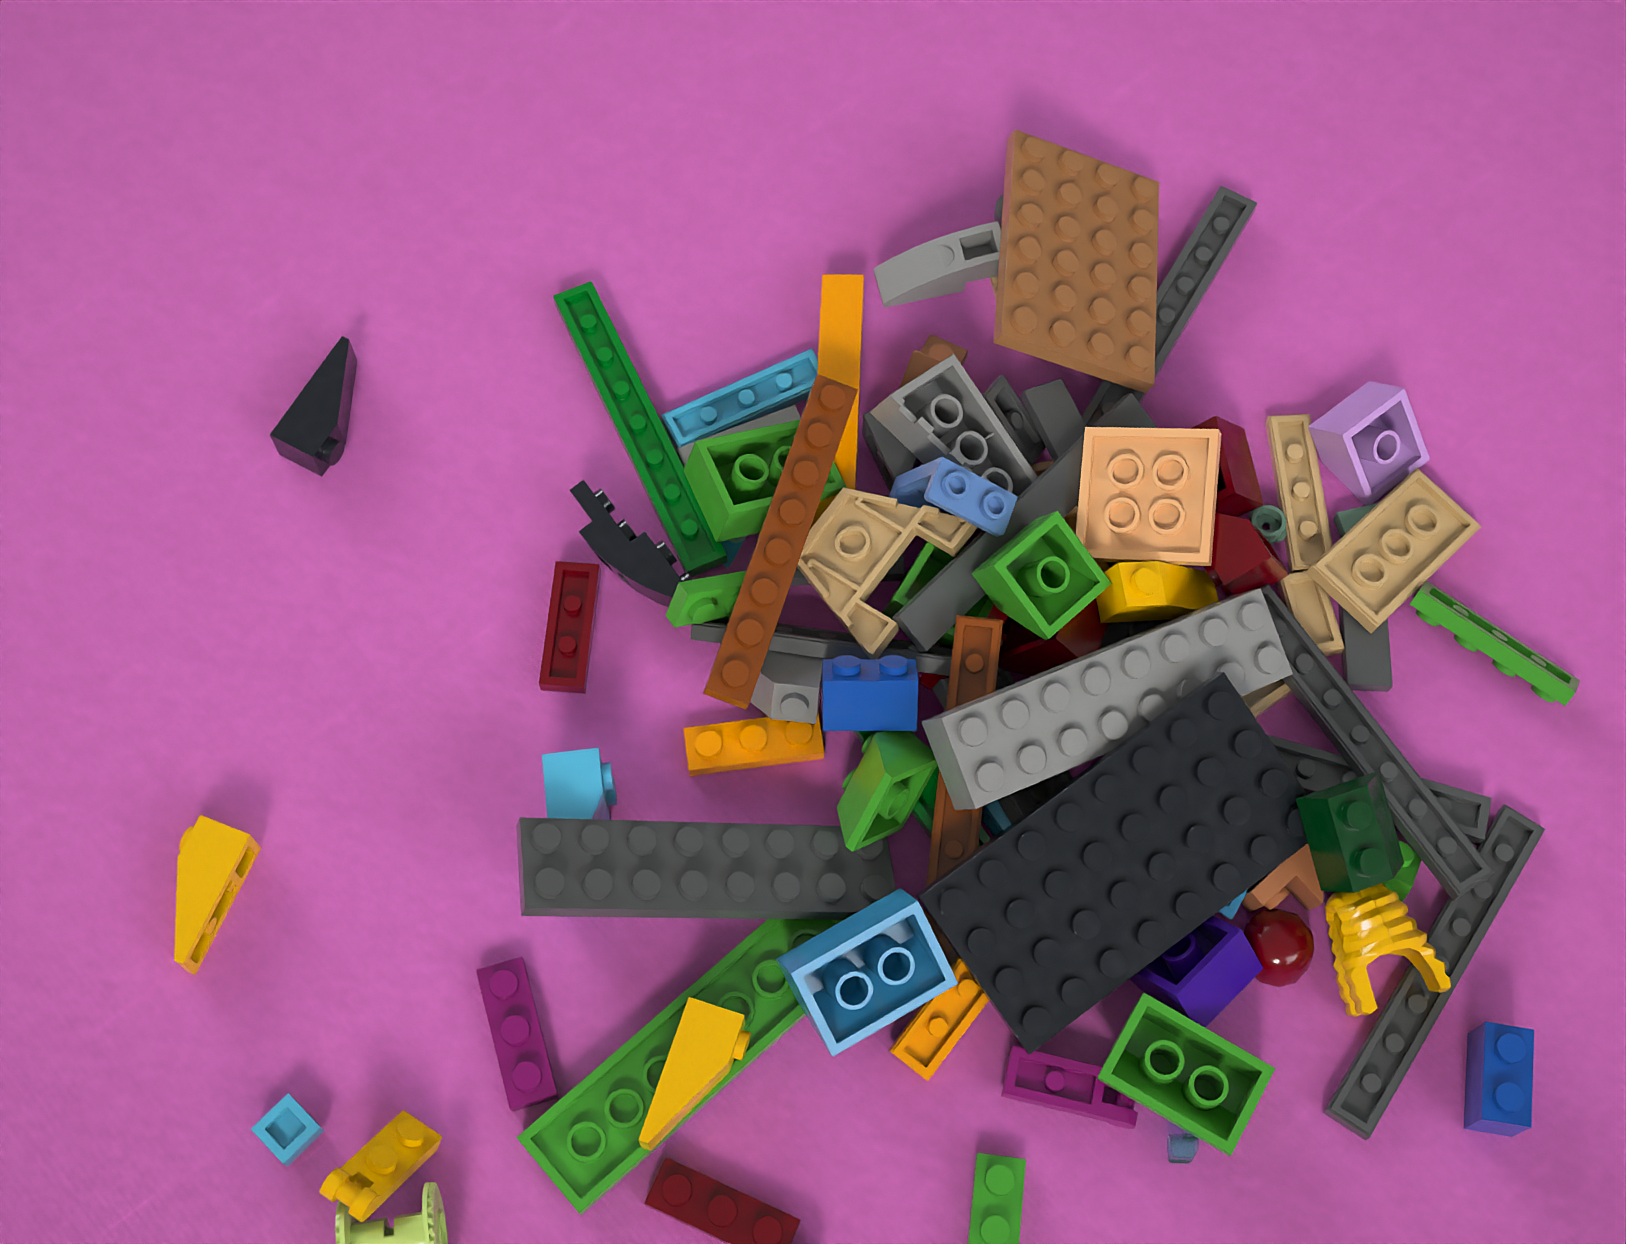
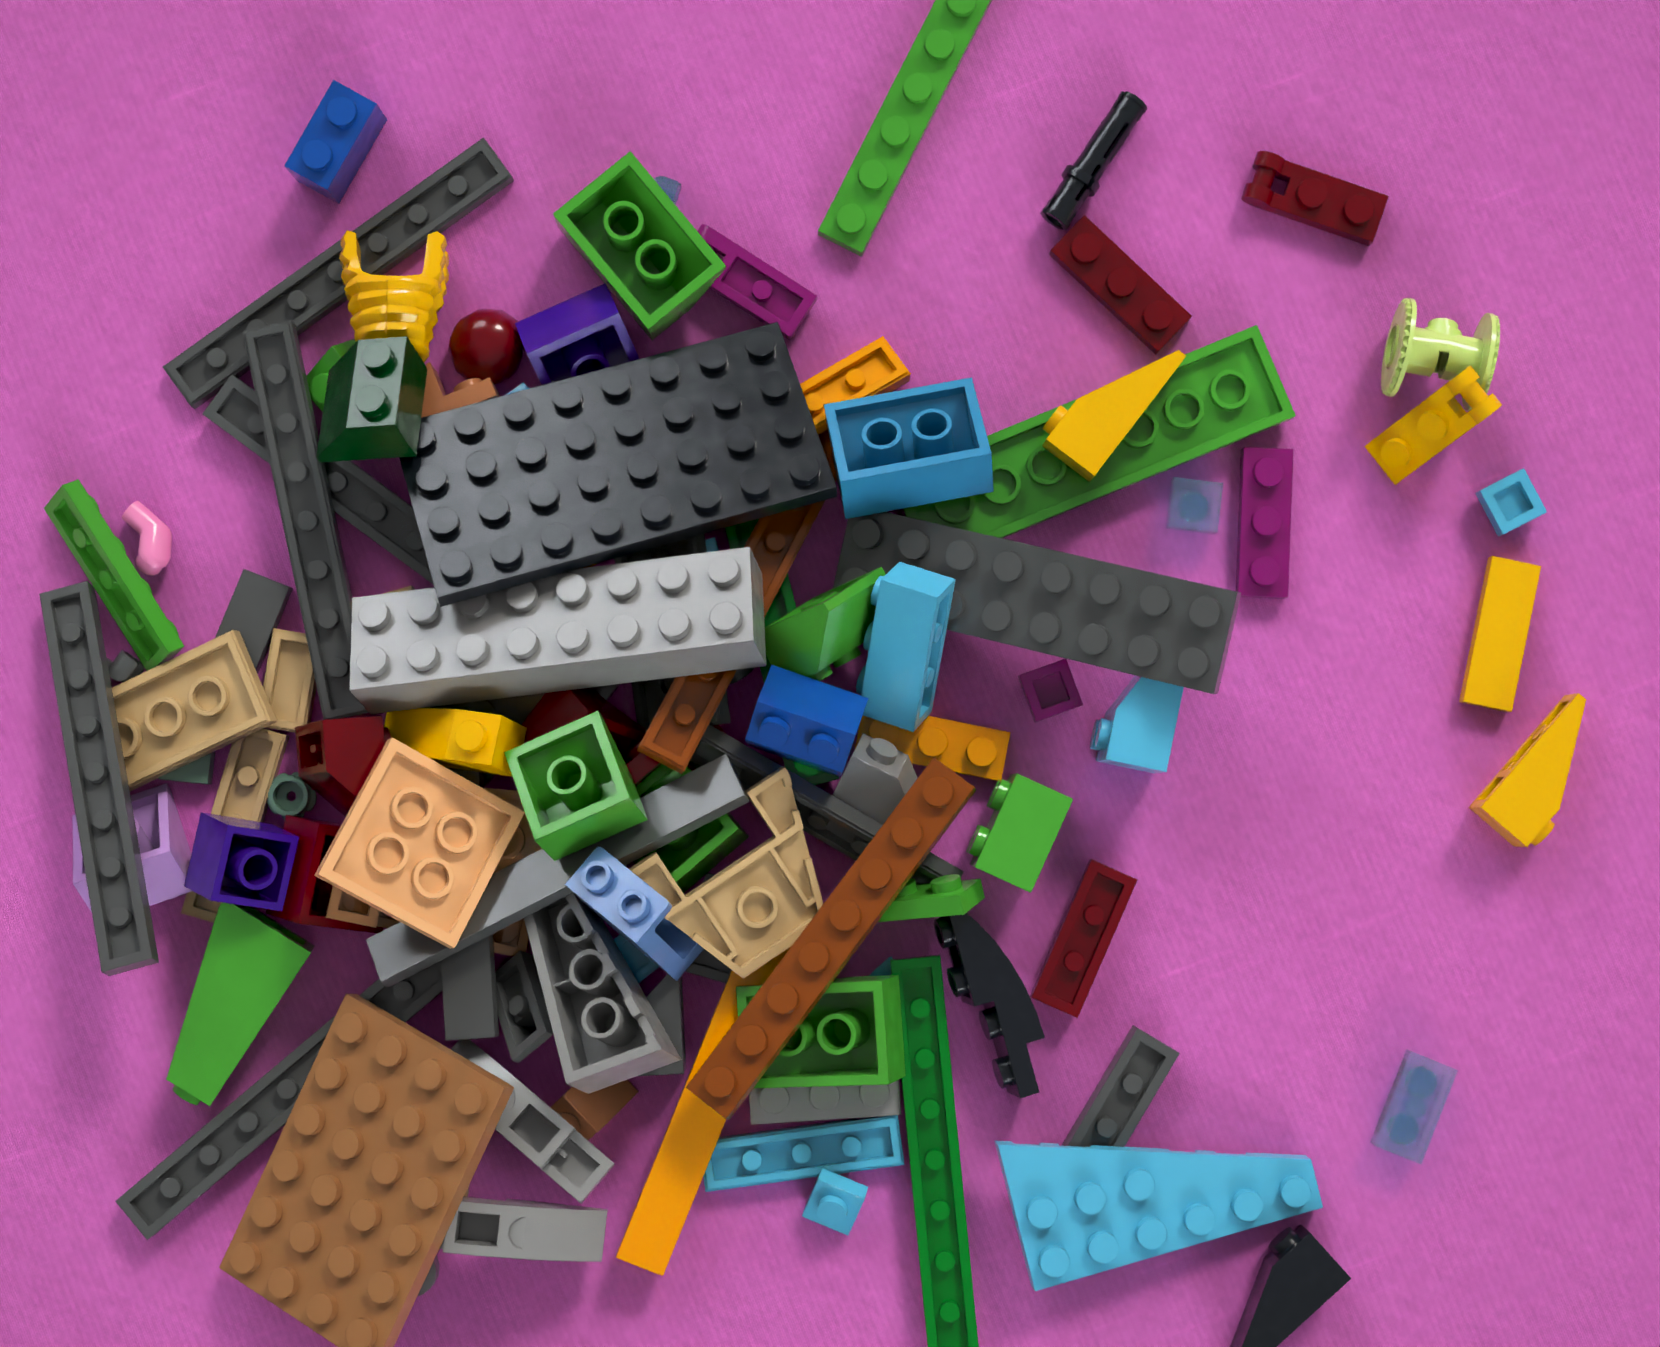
camera: 155 degrees left, 20 degrees up
(249, 586) = (1413, 1106): none -> clear light blue plate
(268, 1007) = (1500, 634): none -> yellow tile
(463, 440) = (1121, 1205): none -> medium azure wing
(506, 492) = (1123, 1092): none -> dark grey plate
(586, 1023) = (1194, 505): none -> clear light blue plate
(654, 681) = (1019, 830): none -> bright green brick
(665, 806) = (1050, 690): none -> magenta plate
(706, 370) = (835, 1201): none -> medium azure plate
(807, 796) = (905, 645): none -> medium azure brick
(971, 339) = (543, 1133): none -> light grey slope
(1240, 365) = (236, 990): none -> bright green slope
(1282, 450) = (241, 862): none -> dark purple head
(1428, 475) = (98, 780): none -> dark grey plate
(1451, 575) = (124, 667): none -> dark grey hand
(1477, 685) = (154, 538): none -> bright pink arm

